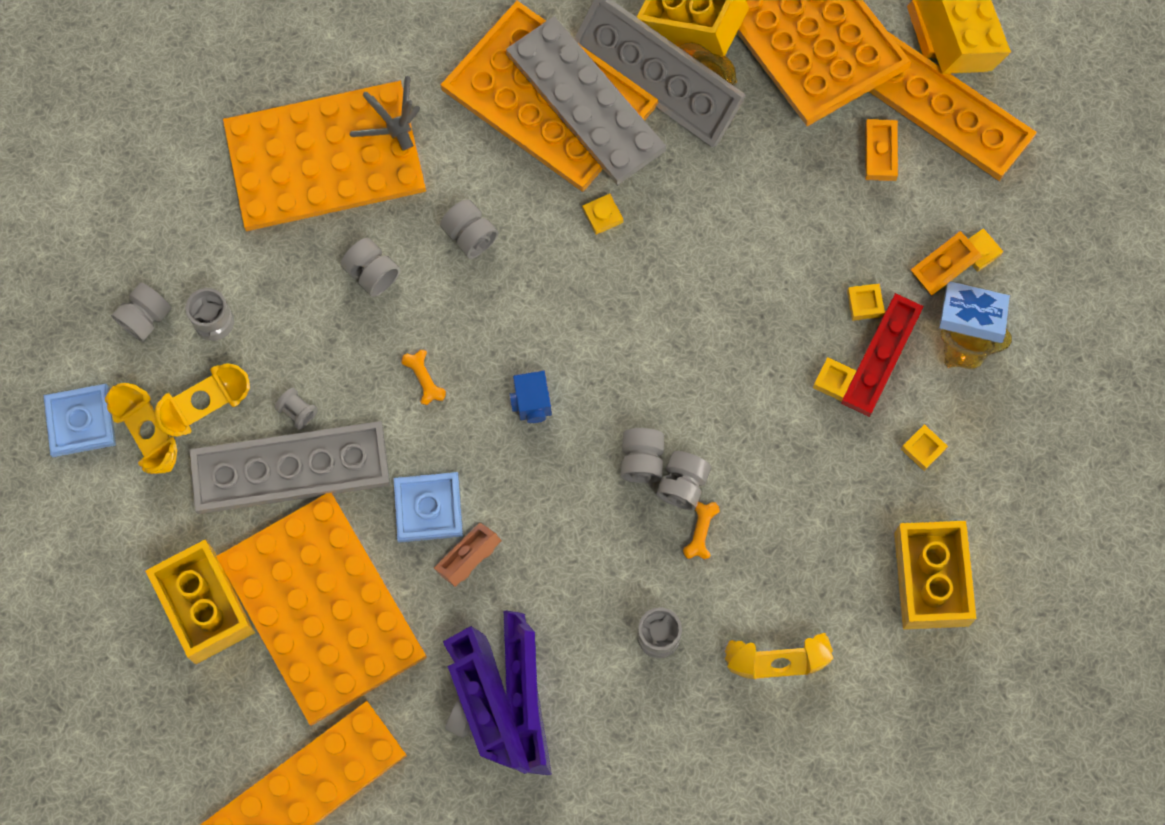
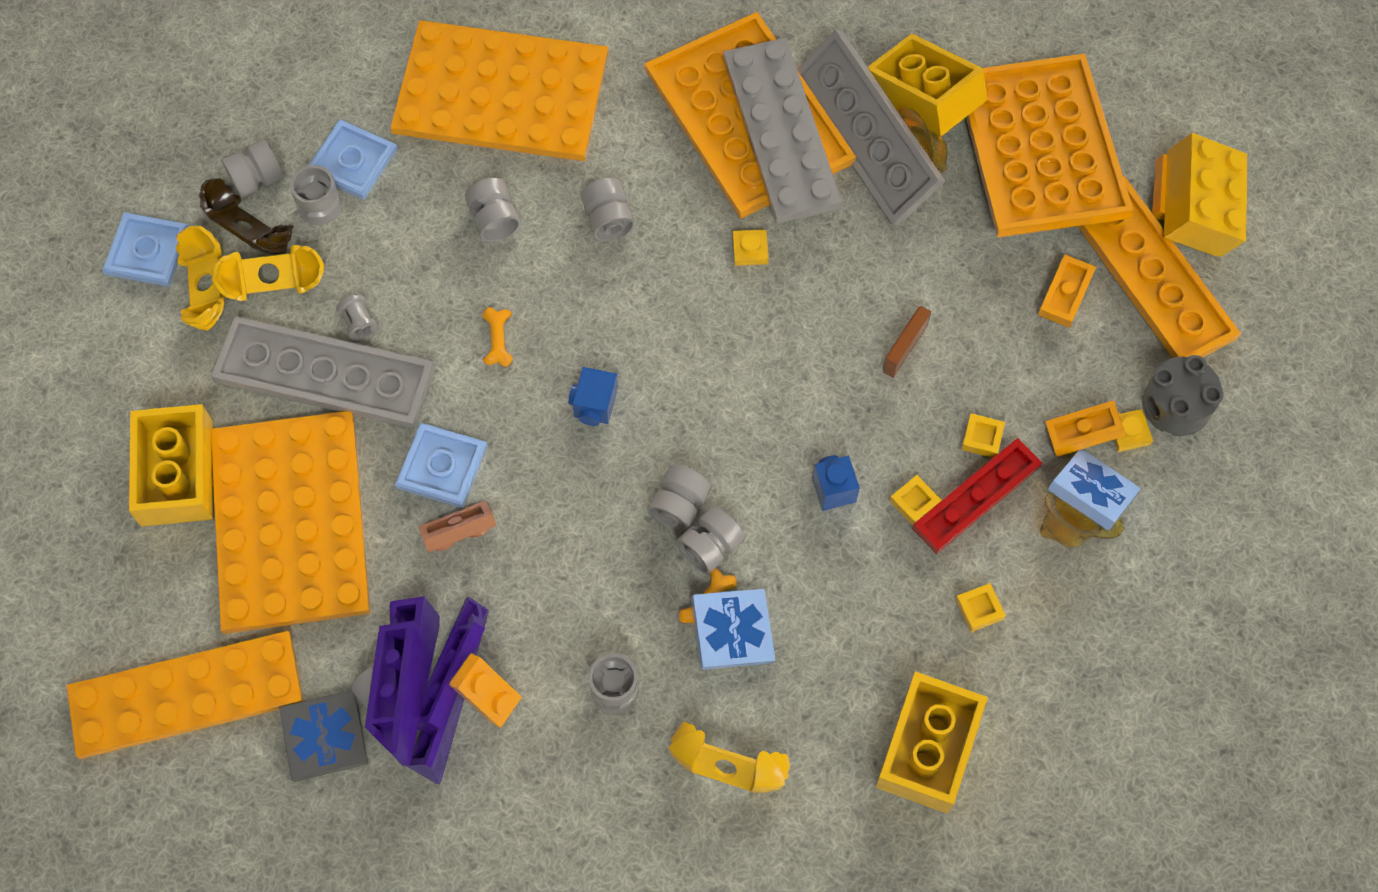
camera: 20 degrees right, 5 degrees down
(129, 357) = (222, 207): none -> dark brown piece
(223, 266) = (354, 158): none -> light blue tile
(396, 127) = (580, 85): dark grey plant -> none
(437, 775) = (323, 736): none -> dark grey tile
(558, 682) = (485, 690): none -> light orange plate
(734, 547) = (732, 629): none -> light blue tile
(764, 390) = (835, 482): none -> blue brick
(769, 246) = (906, 341): none -> dark orange tile
(1012, 204) = (1182, 395): none -> dark grey brick

